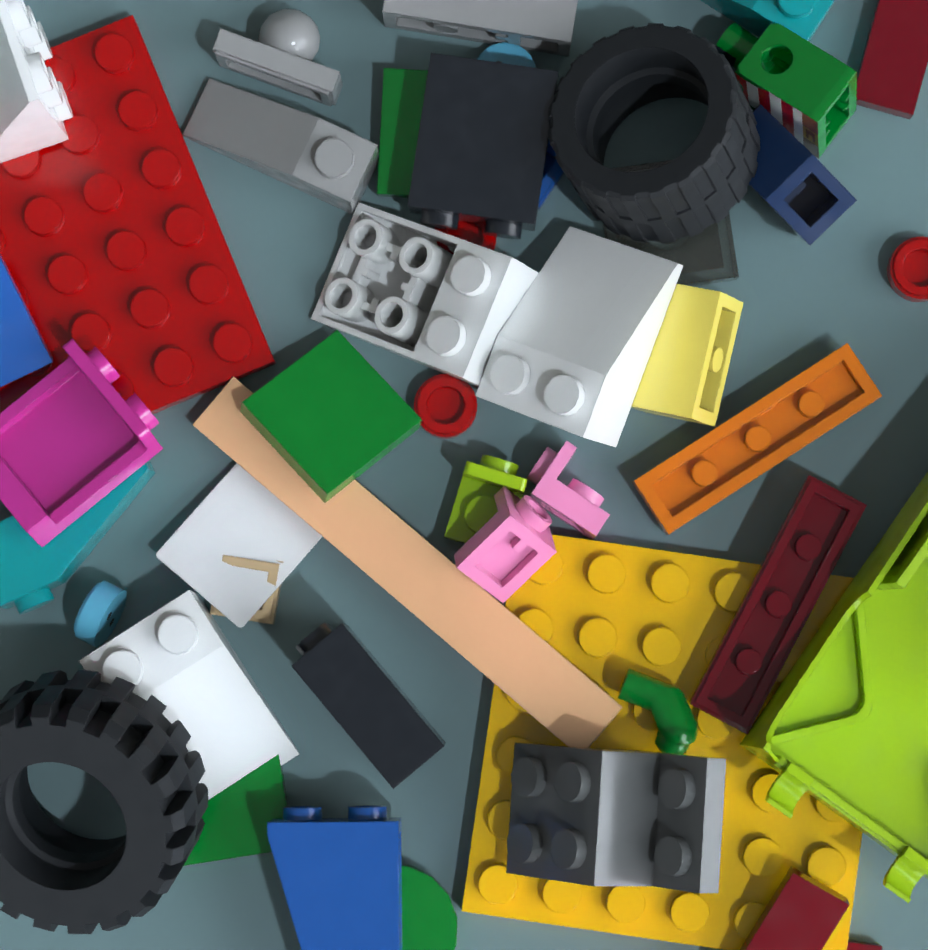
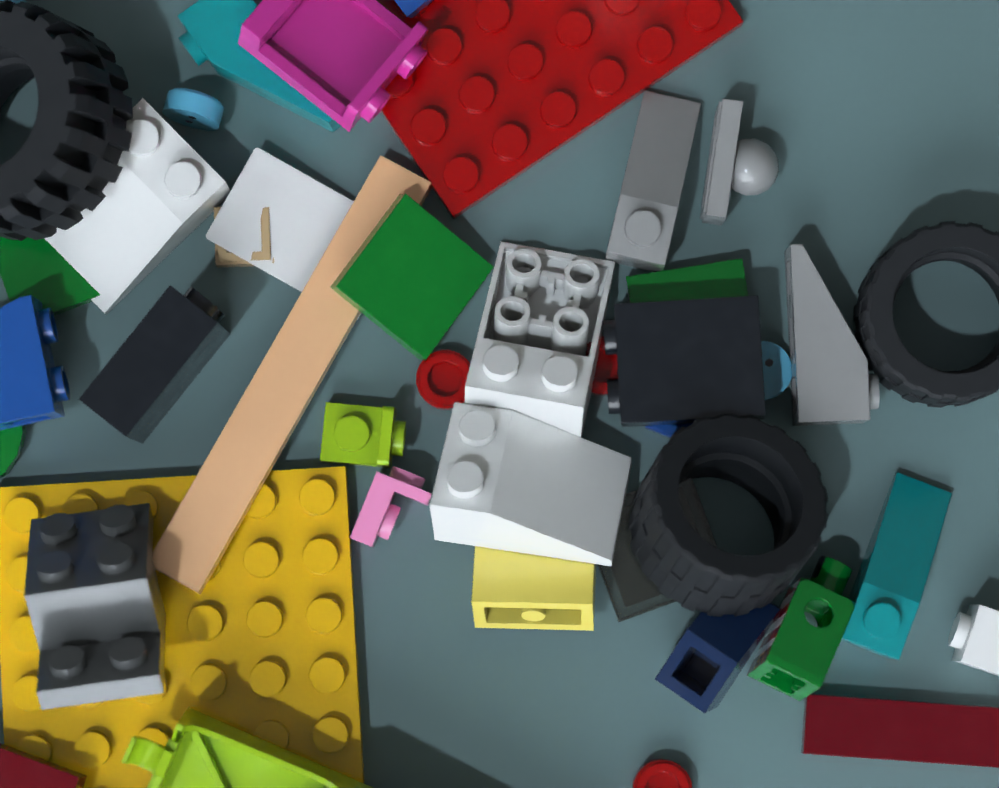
camera: 80 degrees right, 0 degrees up
(508, 546) = (325, 460): bright pink bracket -> none
(669, 709) = (206, 636): green arm -> none
(757, 439) = (472, 669): orange plate -> none
(777, 604) = (321, 716): dark red tile -> none

